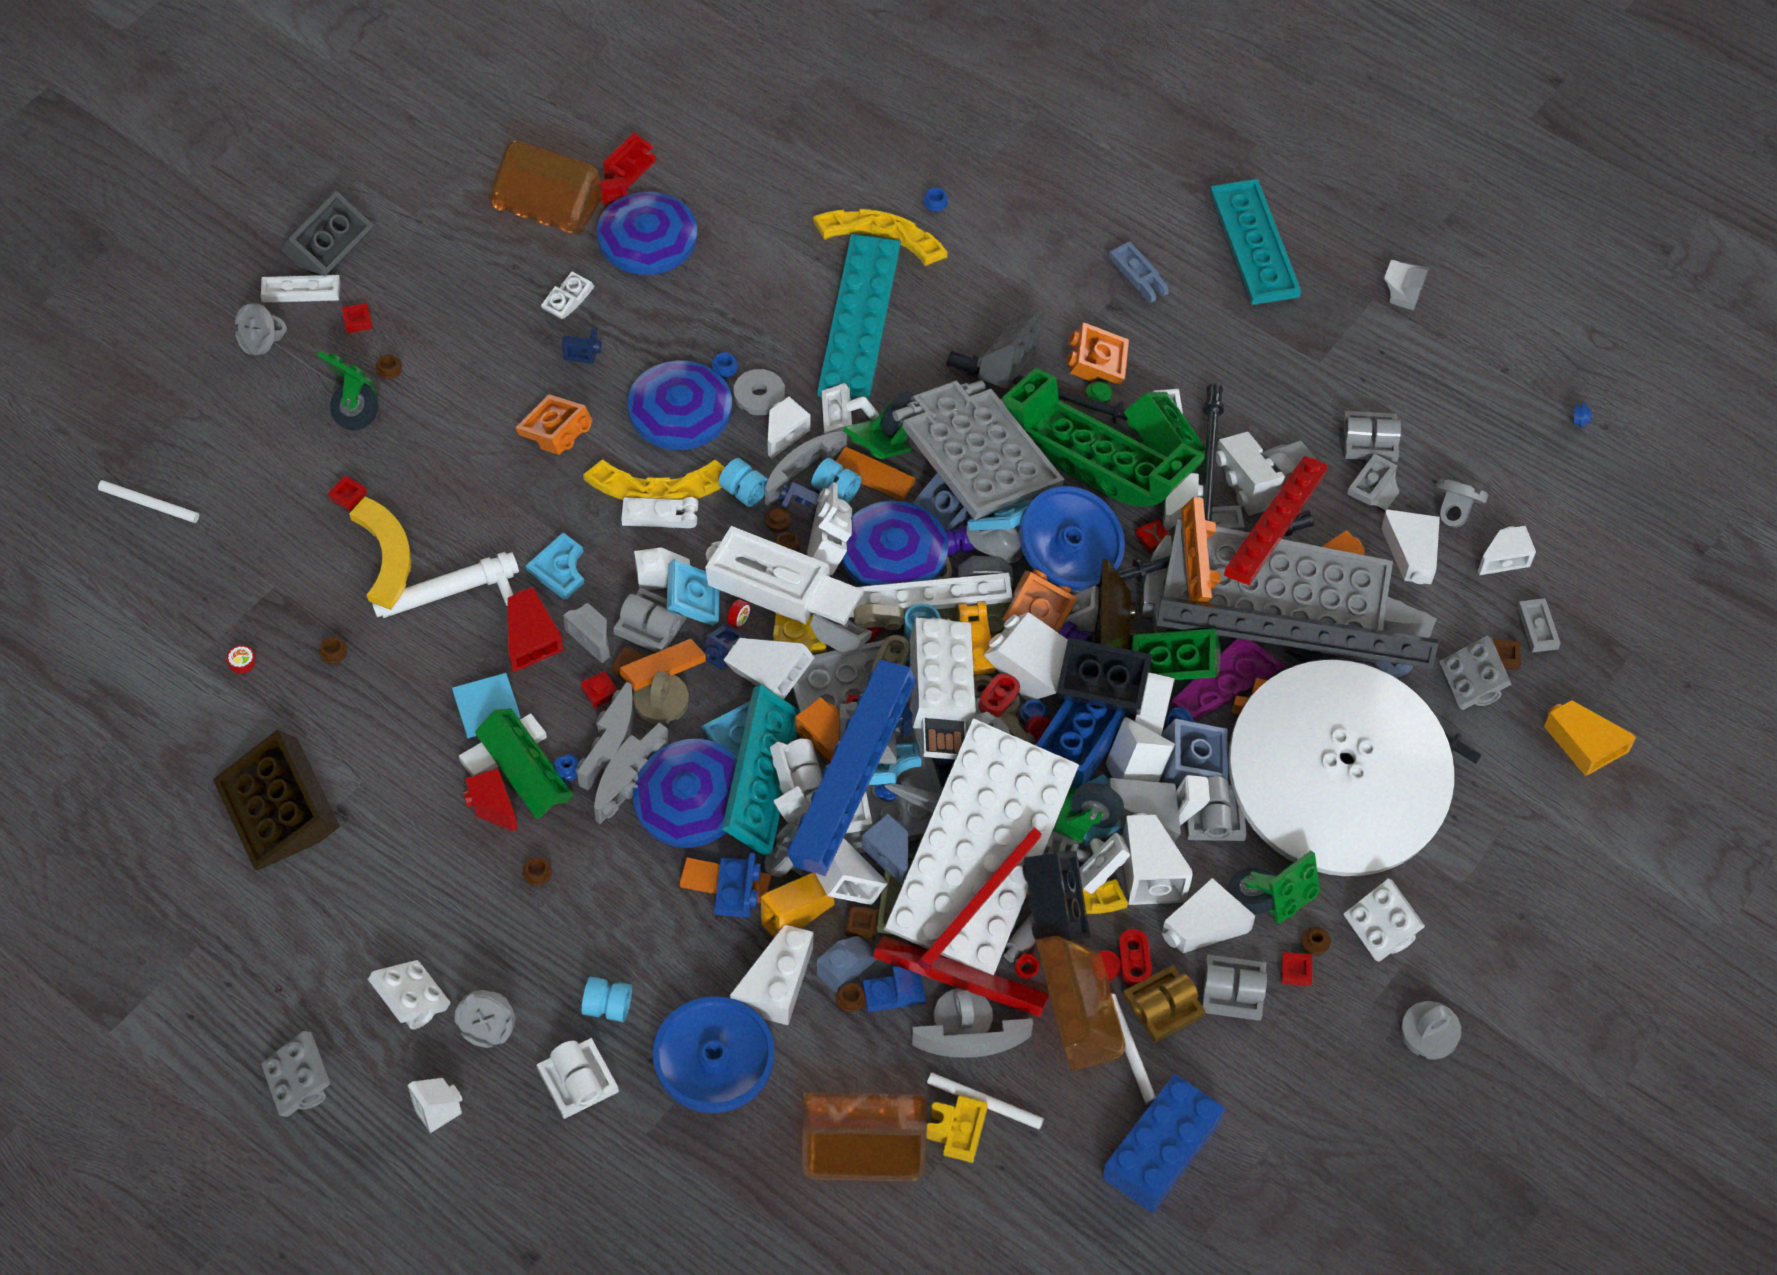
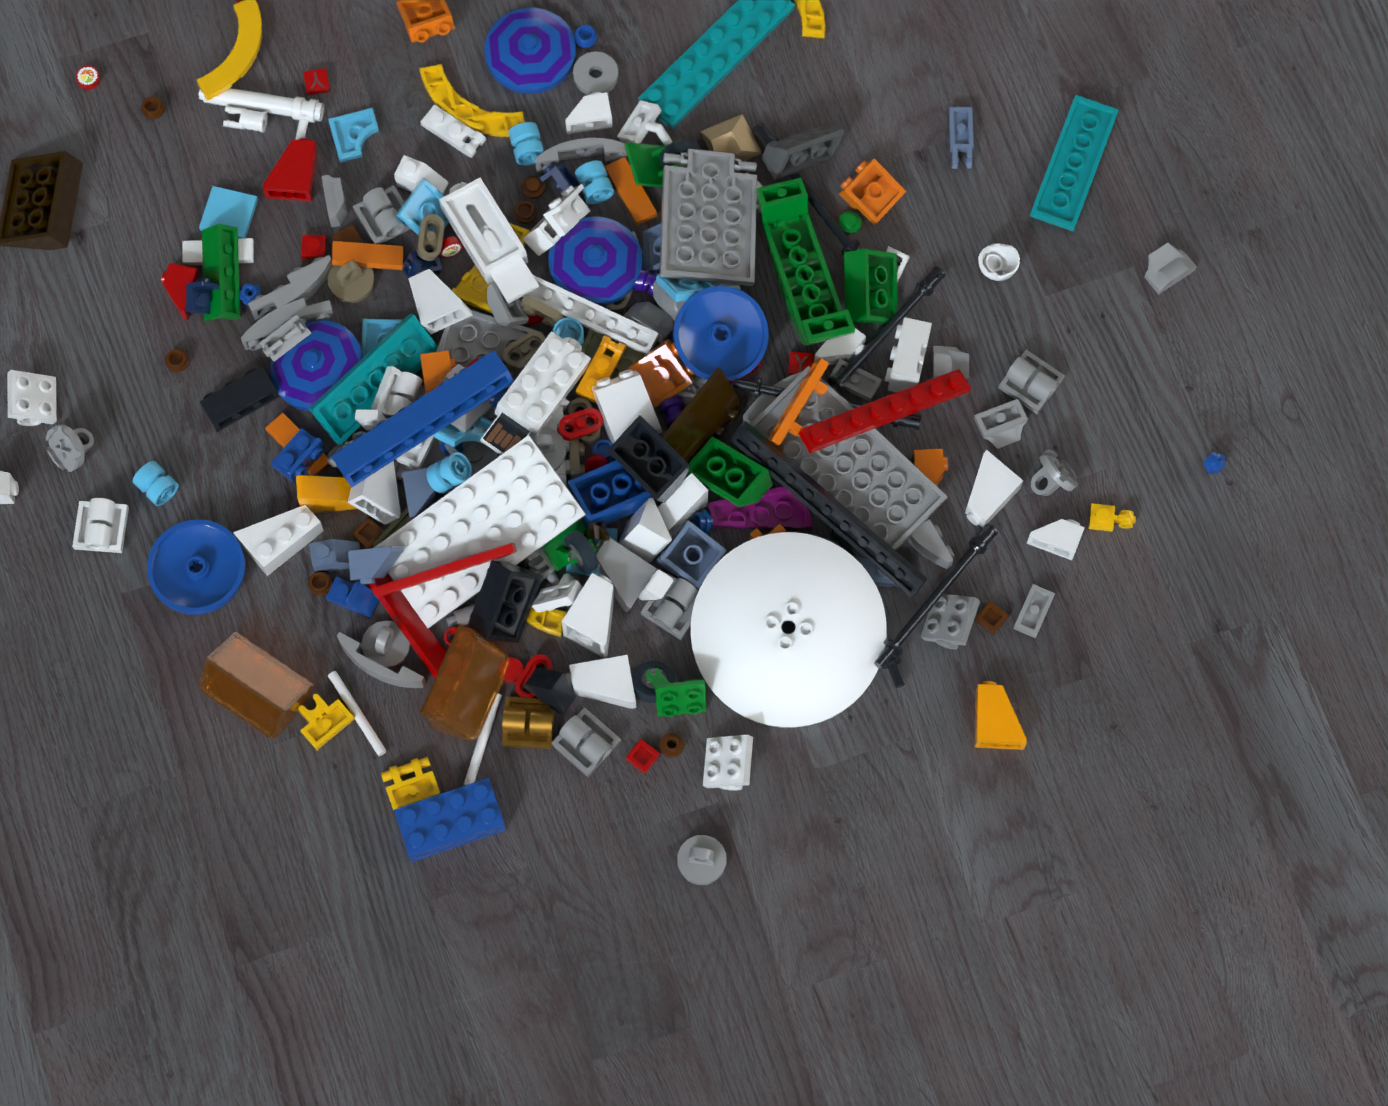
camera: 35 degrees right, 15 degrees up
(445, 607) = (248, 119): none -> white hinge
(487, 539) = (316, 81): none -> red tile
(518, 793) = (199, 296): none -> dark blue bracket
(632, 869) = (239, 398): none -> black brick
(641, 781) = (285, 338): none -> light grey hinge
(721, 614) = (429, 238): none -> dark tan plate
(900, 935) = (372, 563): none -> sand blue slope
(910, 809) = (449, 472): none -> medium azure wheel
(930, 375) = (732, 137): none -> tan slope
(1099, 775) = (596, 531): none -> dark brown piece
(1101, 1141) = (413, 789): none -> yellow plate
(1164, 952) = (551, 688): none -> black slope
(1262, 350) = (999, 261): none -> white hair
(1443, 598) = (977, 545): none -> black bar
(1529, 514) = (1103, 518): none -> yellow plate

